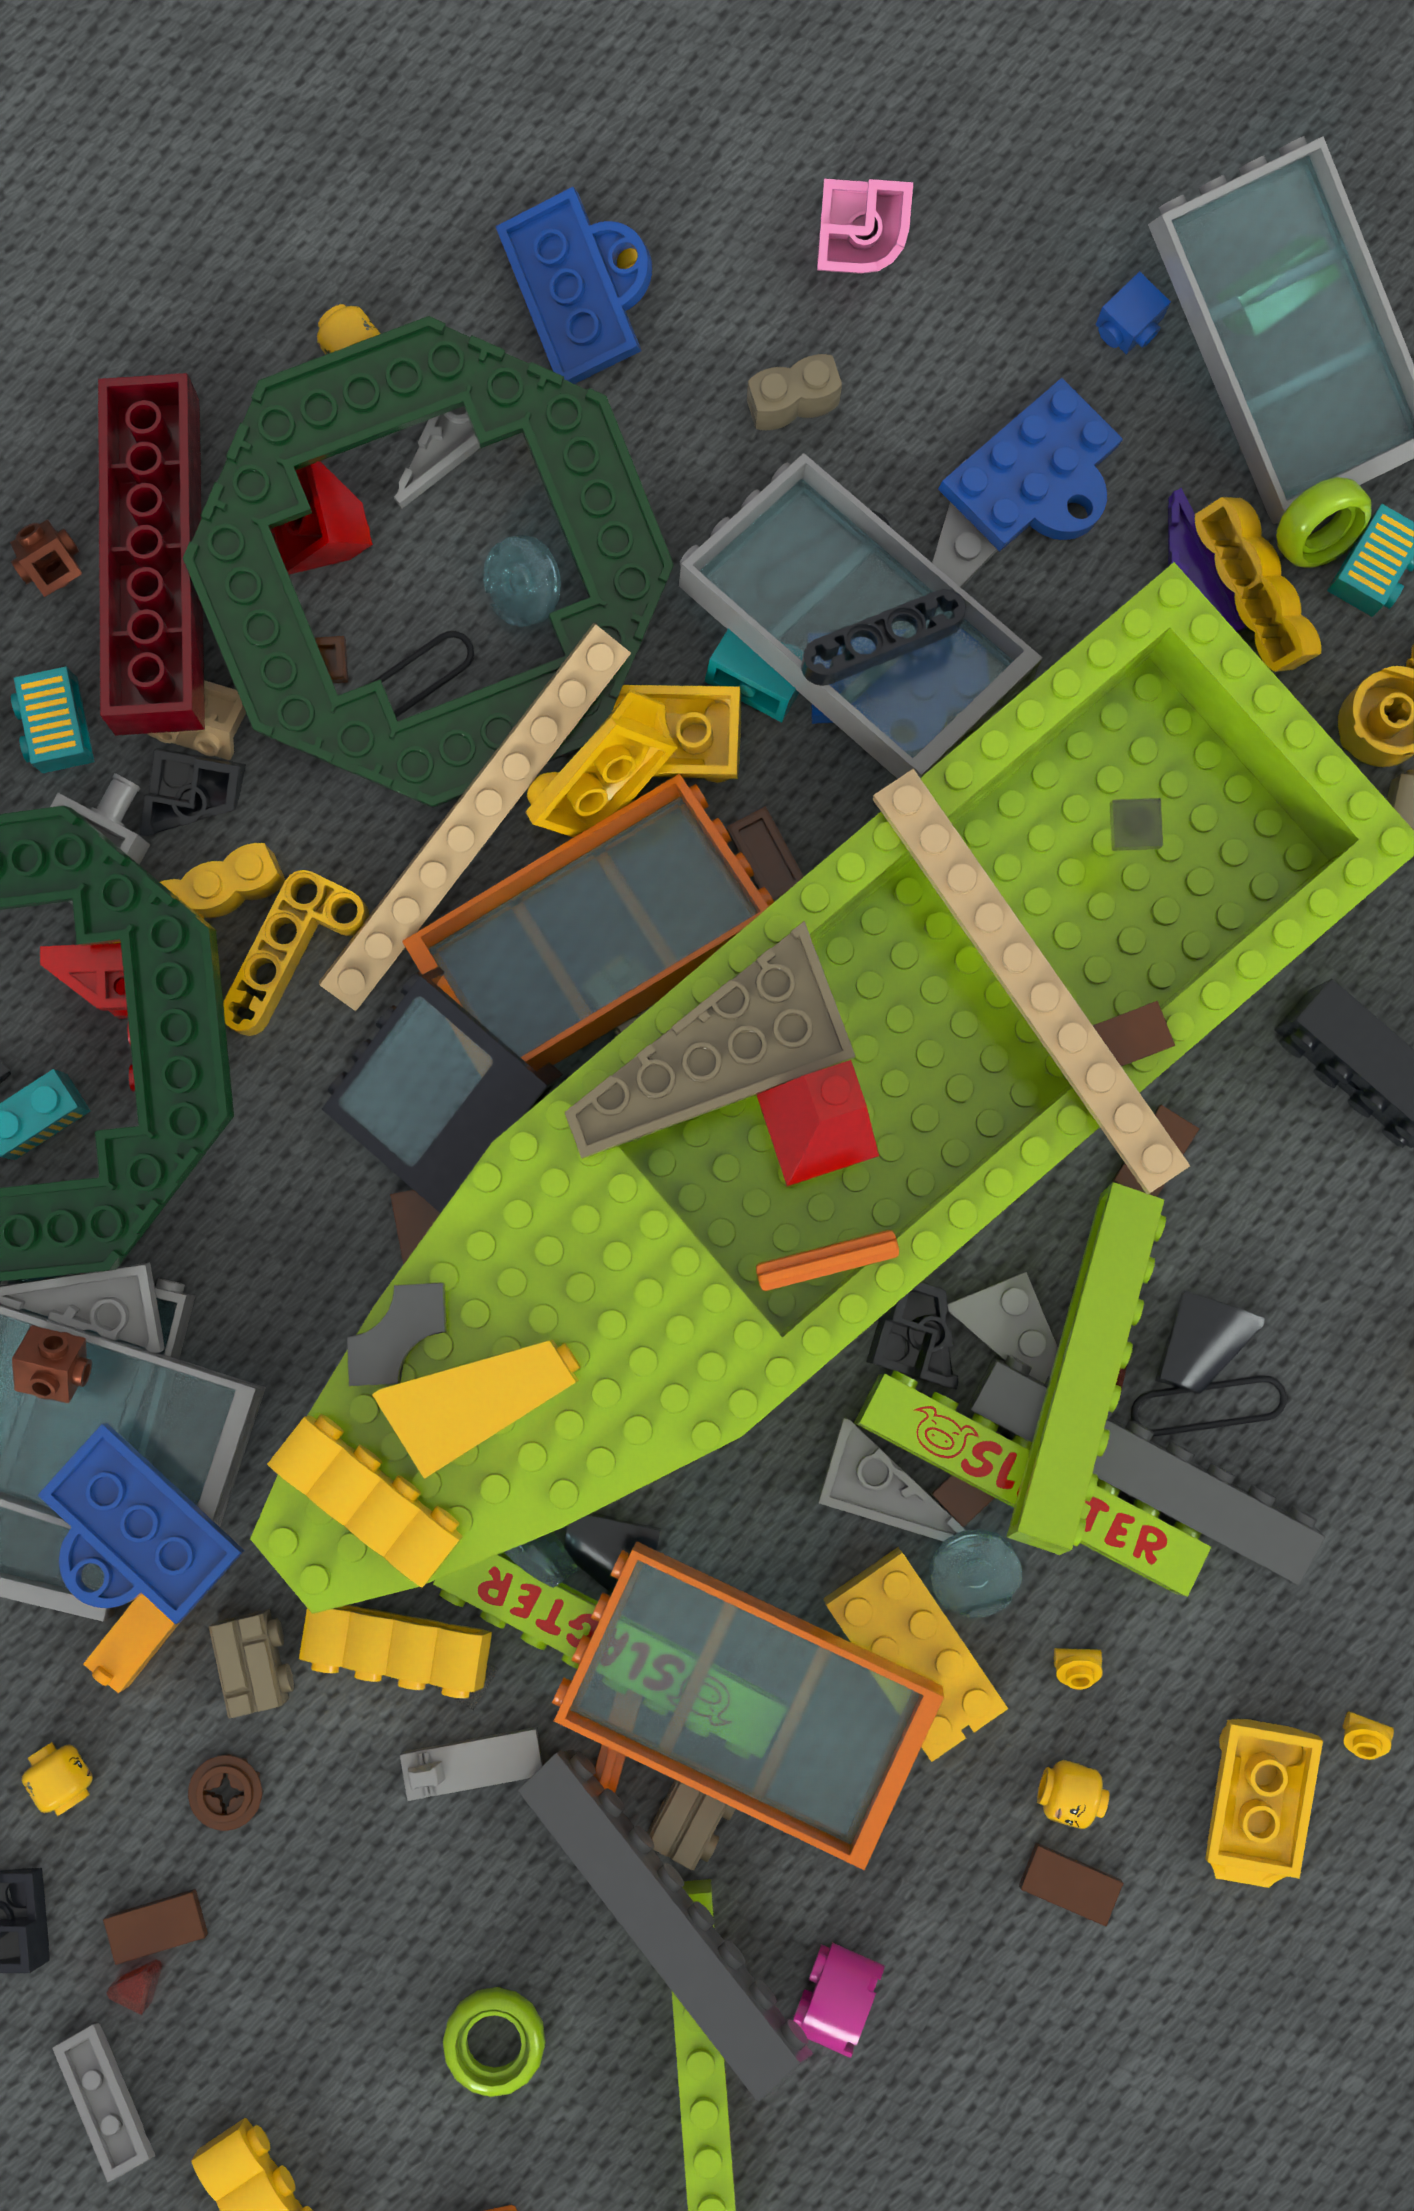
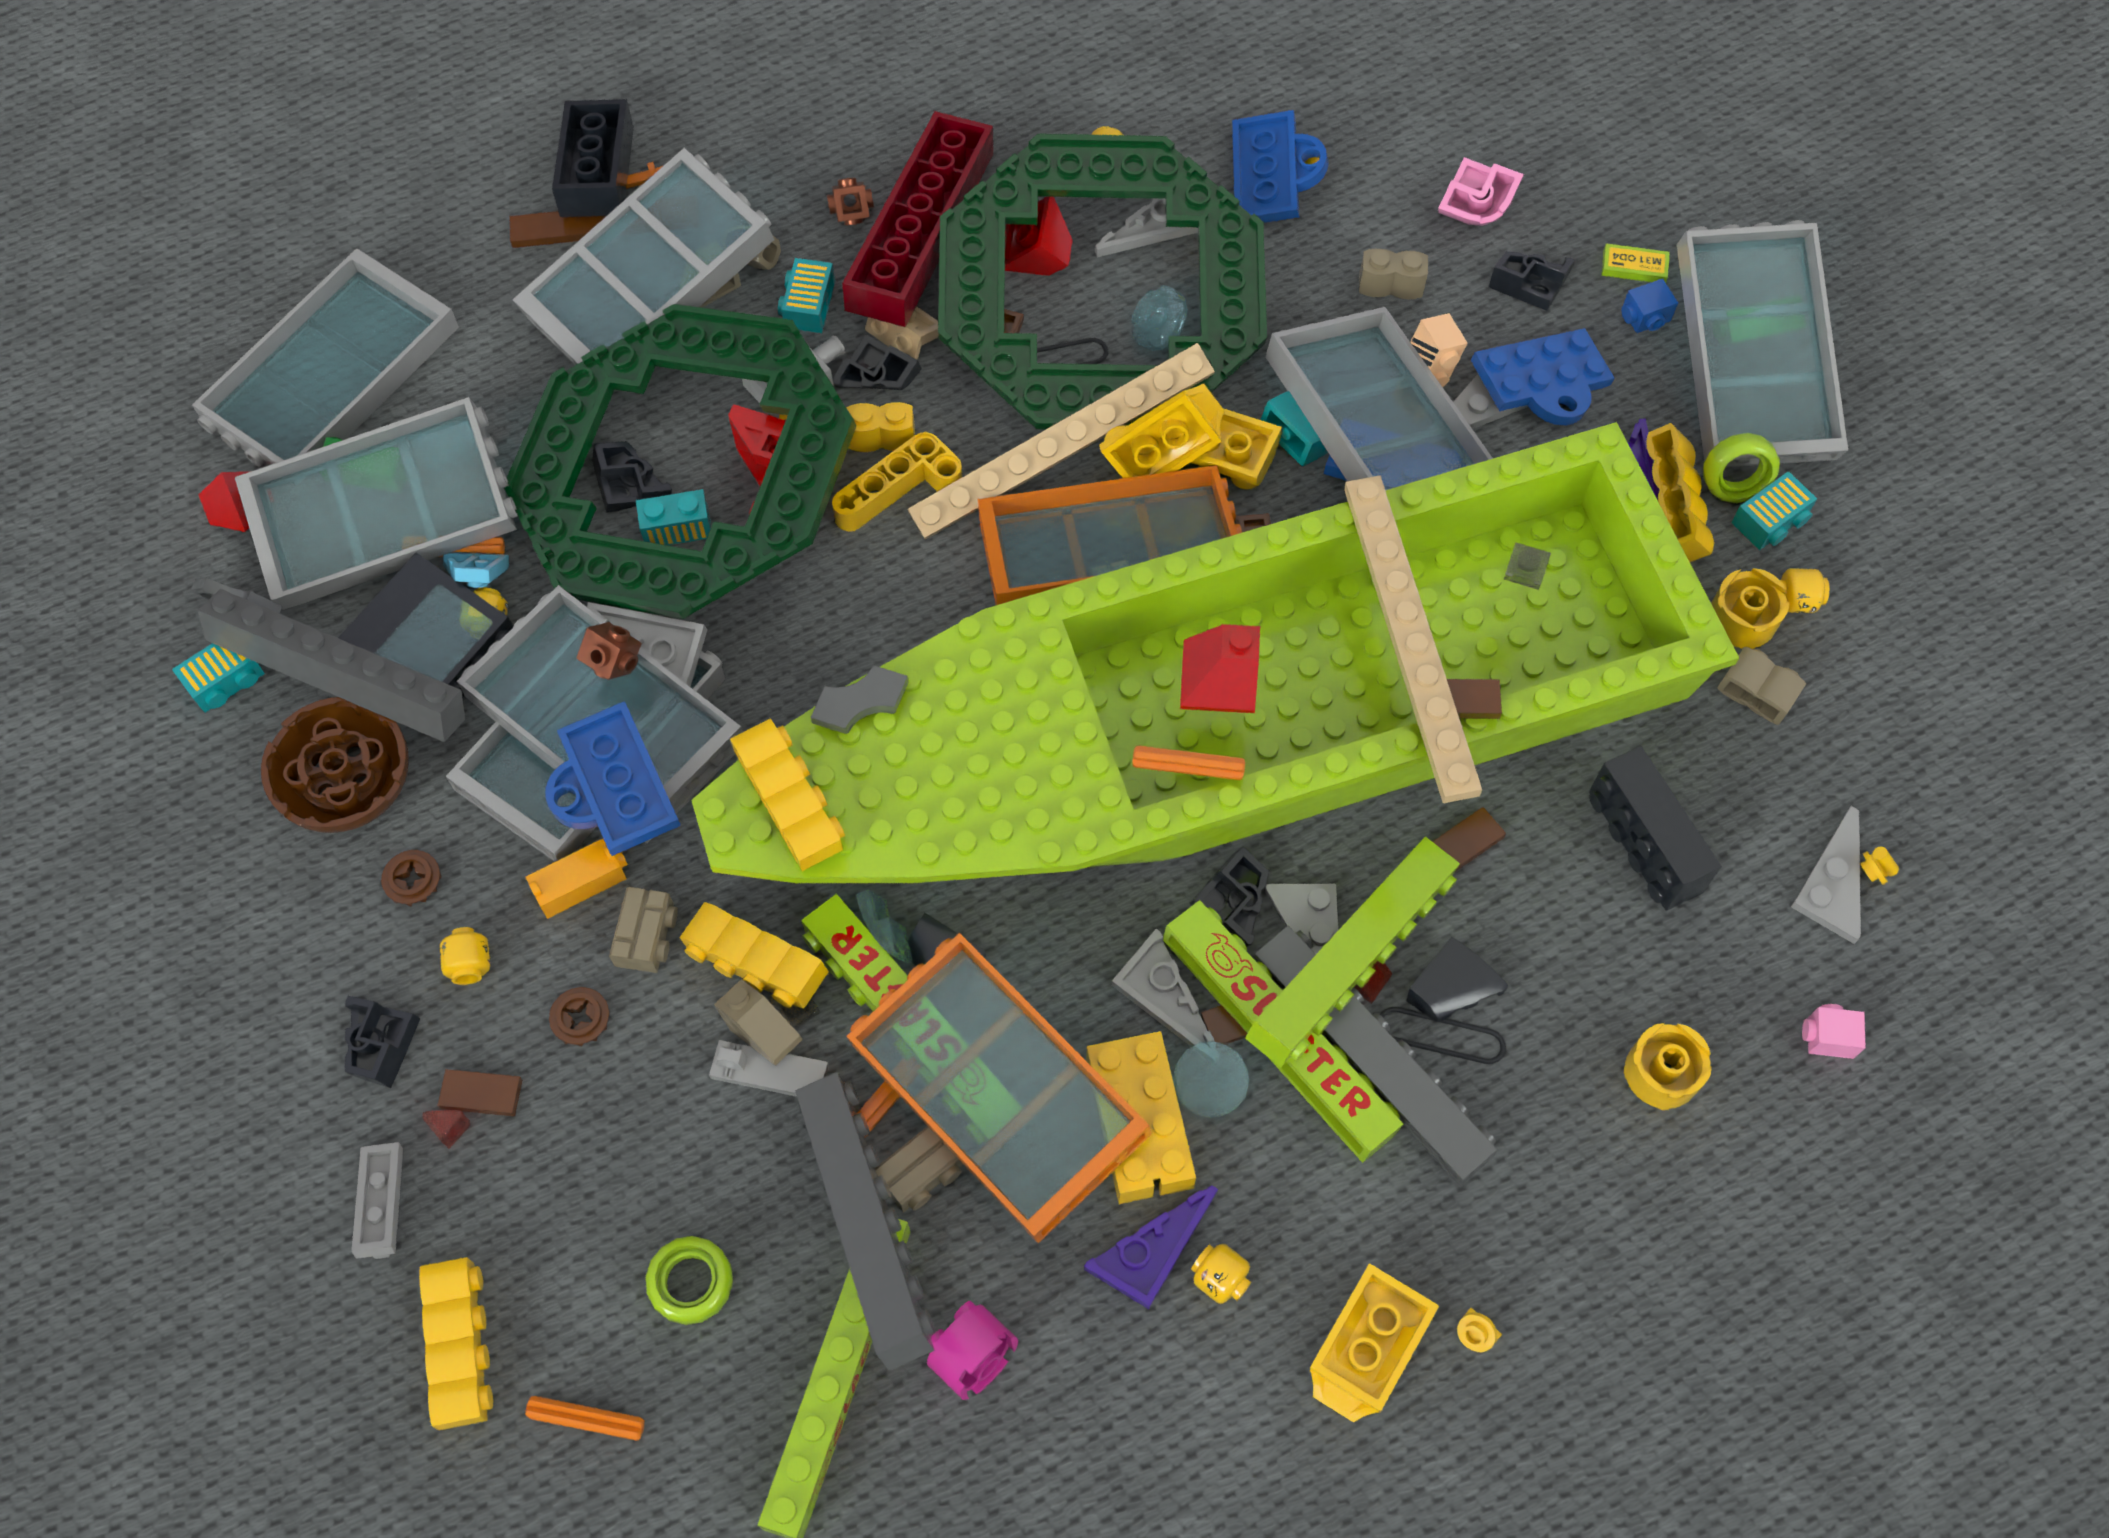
camera: 25 degrees right, 20 degrees down
(433, 1090) = (951, 578): panel -> none
(438, 1726) = (757, 1022): none -> dark tan slope
(465, 1405) = (896, 758): yellow slope -> none
(737, 1043) = (1166, 599): dark tan wing -> none
(887, 643) = (1433, 419): black beam -> none
(897, 493) = (1439, 345): none -> light nougat brick
(953, 320) = (1521, 274): none -> black slope
(982, 1806) = (1145, 1259): none -> dark purple wing
(1071, 1884) = (1192, 1350): reddish brown tile -> none
(1078, 1667) = (1263, 1184): yellow plate -> none
(1092, 249) = (1635, 263): none -> tile

